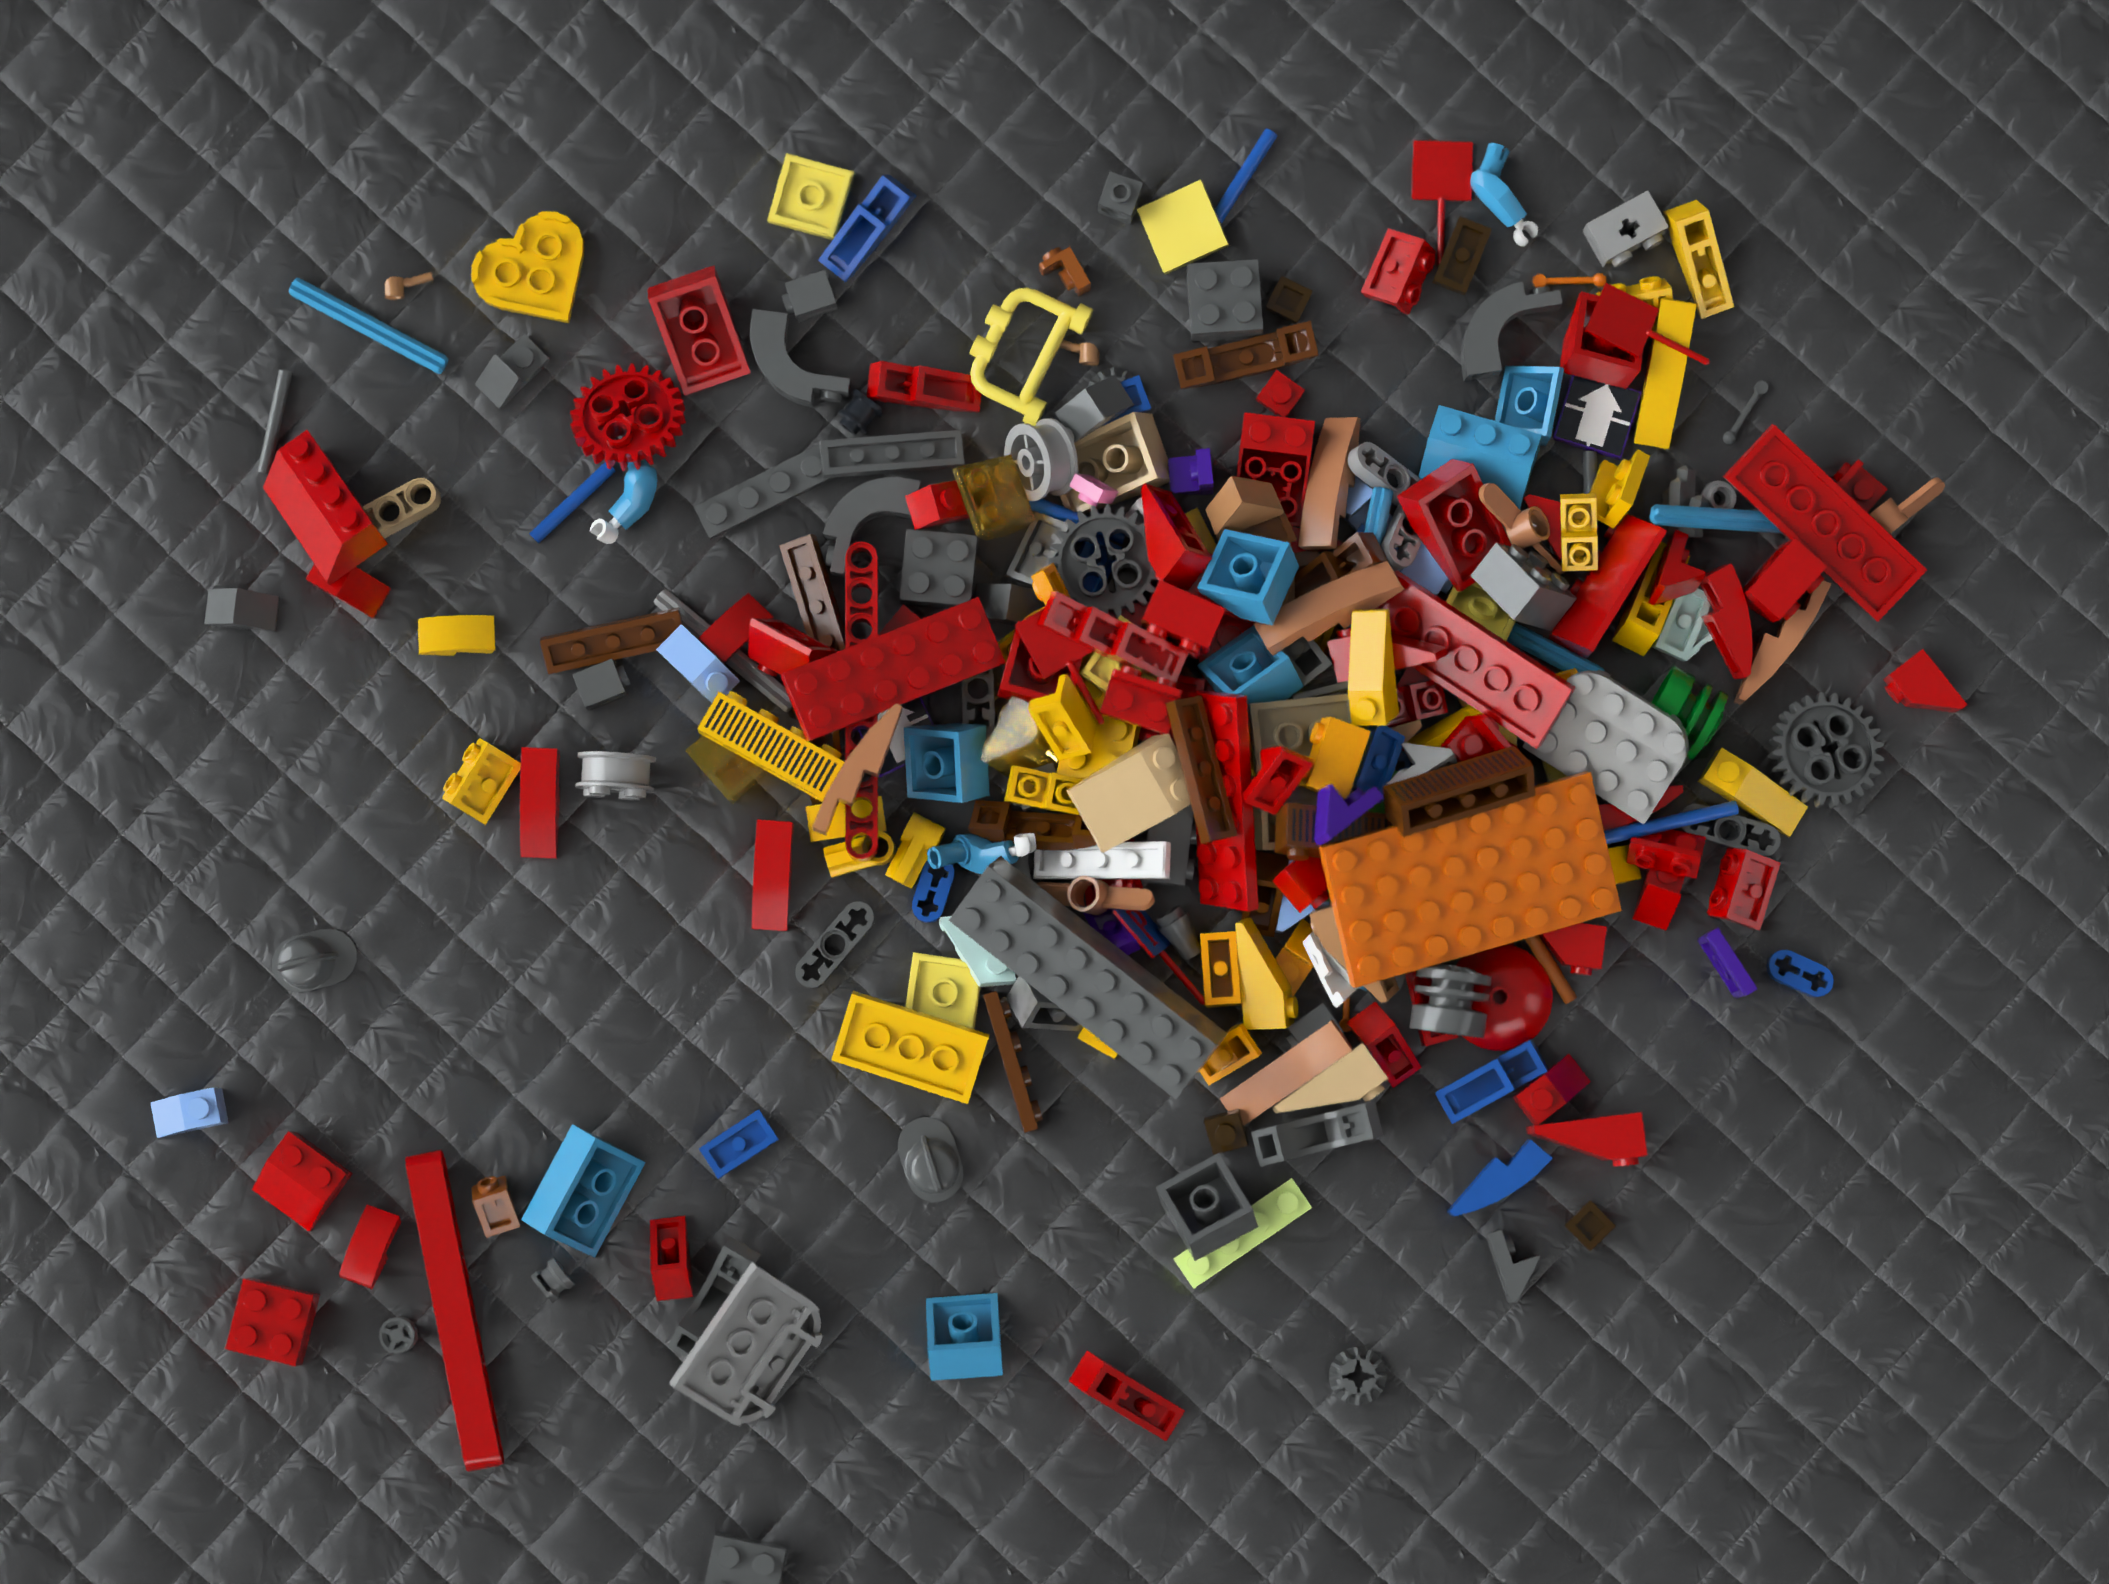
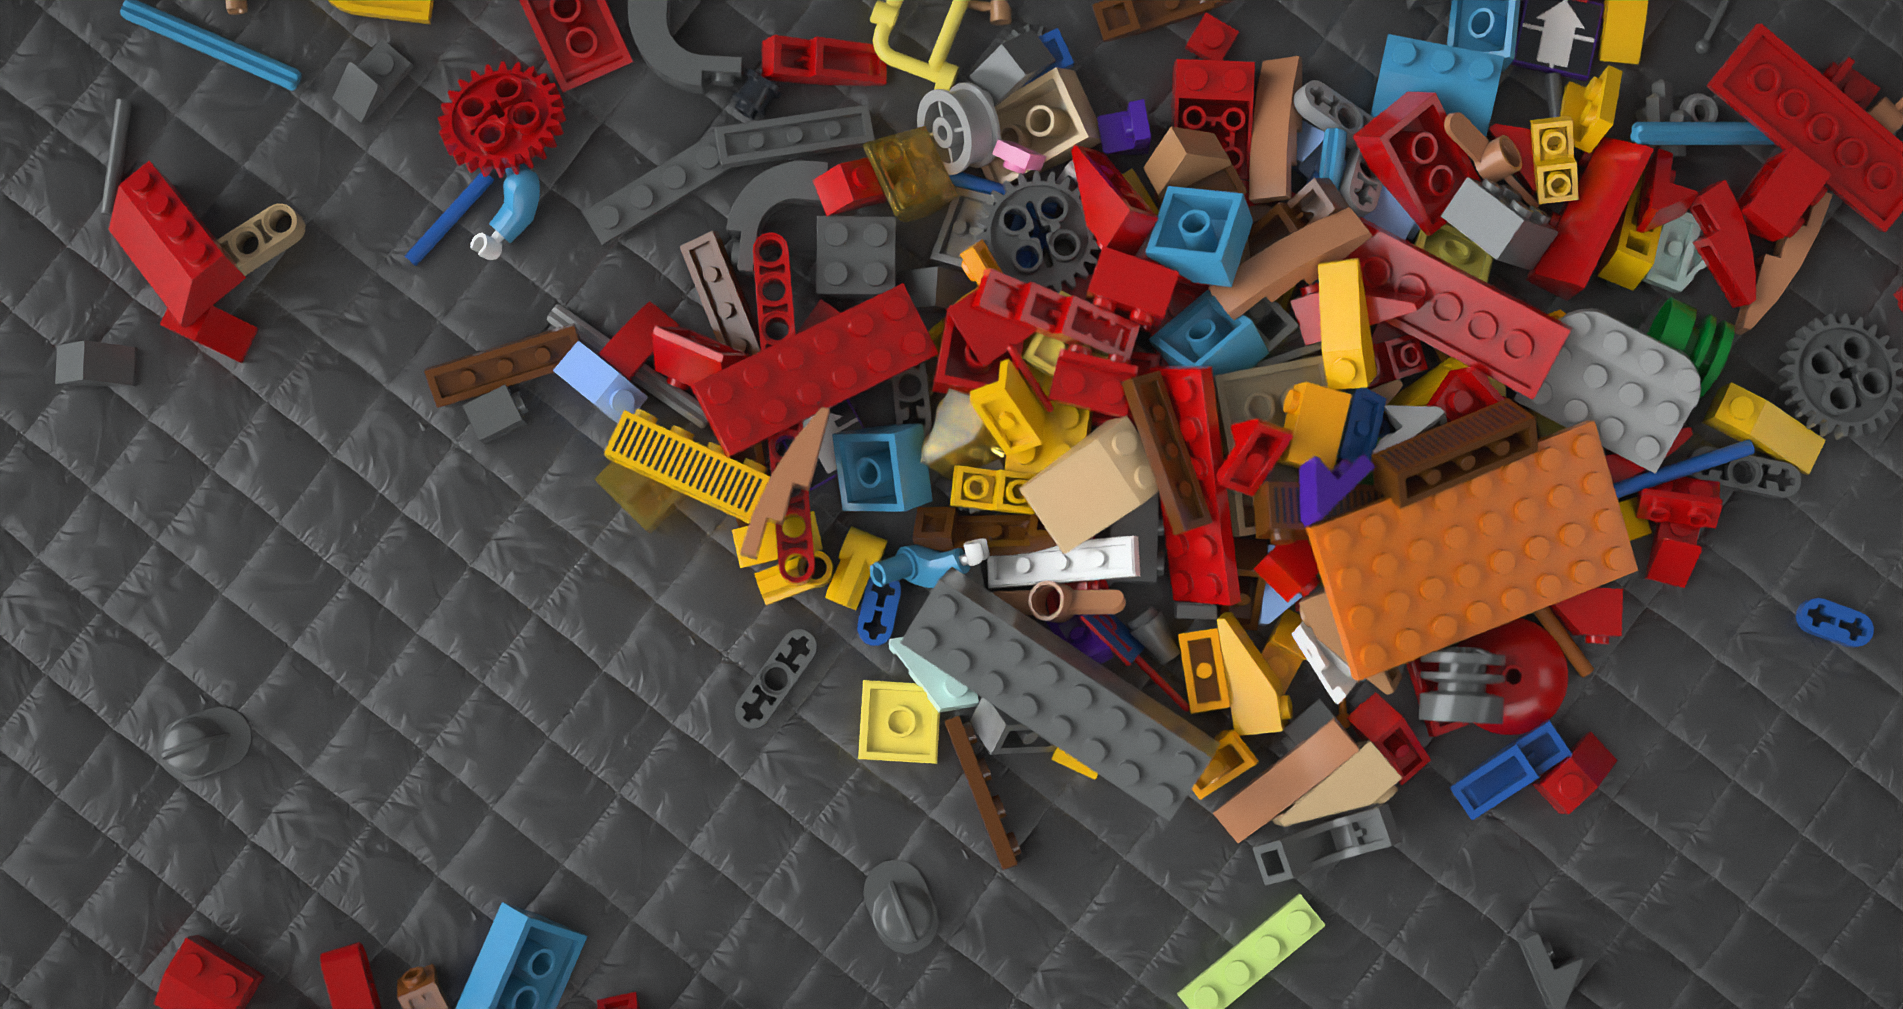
camera: 10 degrees left, 0 degrees up
(189, 1112) = (78, 923): light blue slope -> none
(456, 634) = (332, 372): yellow slope -> none
(481, 780) = (372, 530): yellow bracket -> none
(539, 802) = (438, 549): red slope -> none
(615, 773) = (518, 510): light grey wheel -> none
(738, 1144) = (688, 908): blue plate -> none
(772, 875) = (701, 608): red slope -> none
(910, 1047) = (868, 785): yellow plate -> none
(1207, 1207) = (1211, 935): dark grey brick -> none
(1218, 914) = (1194, 610): none -> dark grey tile
(1226, 1131) = (1223, 849): dark brown plate -> none
(1501, 1180) = (1530, 877): blue slope -> none
(1548, 650) = (1532, 294): dark azure axle -> none
(1589, 1225) = (1631, 919): dark brown plate -> none
(1604, 1138) = (1649, 821): red slope -> none
(1726, 963) = (1758, 619): dark purple tile -> none
(1743, 888) = (1764, 534): red bracket -> none

